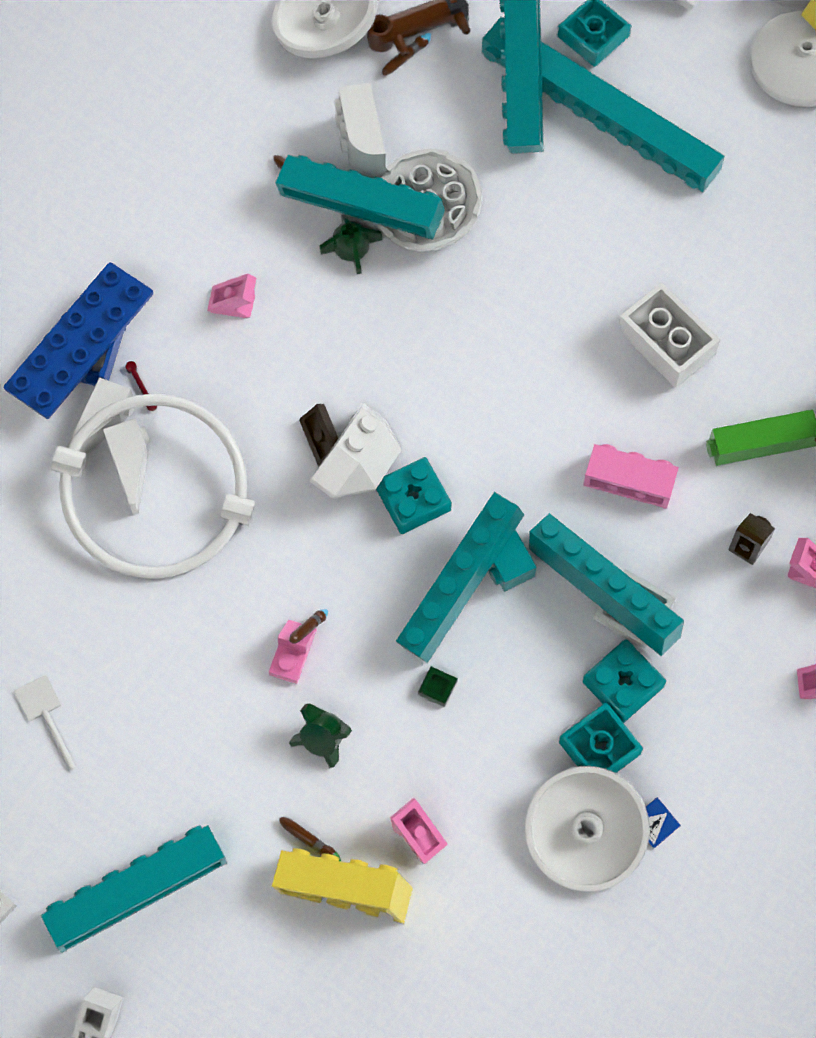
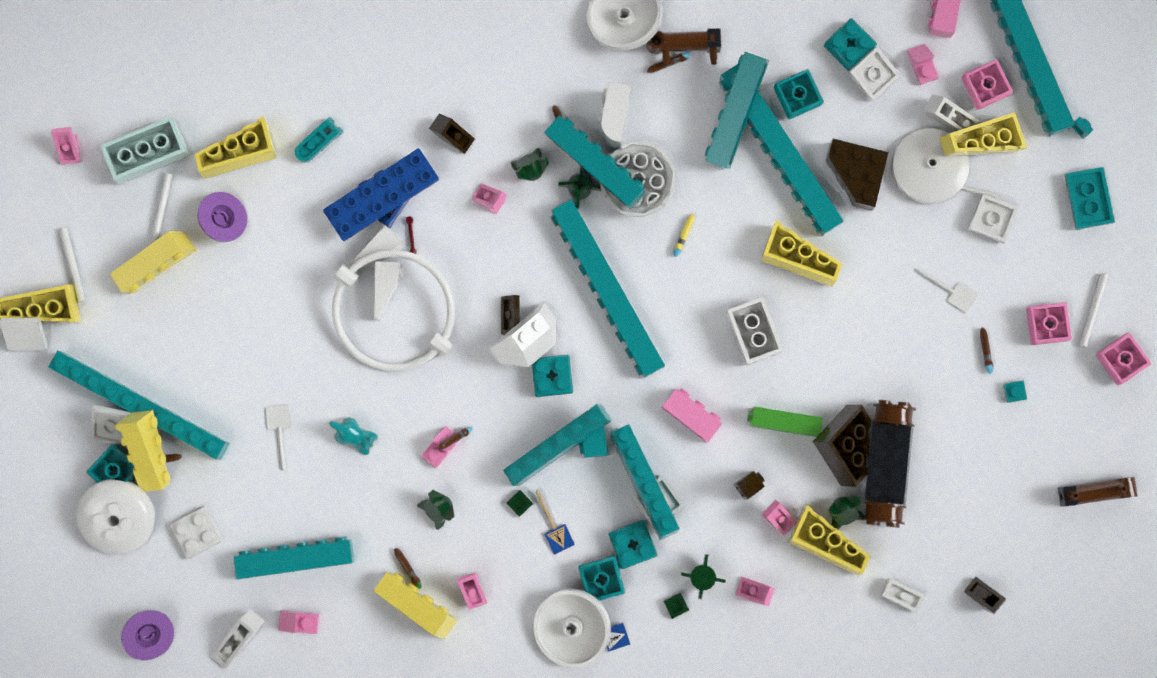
camera: 20 degrees right, 15 degrees up
(148, 234) = (451, 133): none -> dark brown slope
(154, 678) = (351, 434): none -> teal animal
(174, 981) = (298, 622): none -> bright pink slope
(274, 237) = (530, 166): none -> dark green piece
(445, 356) = (607, 288): none -> teal brick
(513, 714) = (559, 537): none -> piece
(518, 254) = (683, 236): none -> light yellow piece
(687, 222) = (798, 256): none -> light yellow wedge
(713, 94) = (857, 171): none -> dark brown brick
(722, 744) = (676, 605): none -> dark green tile
(744, 685) = (703, 577): none -> dark green piece

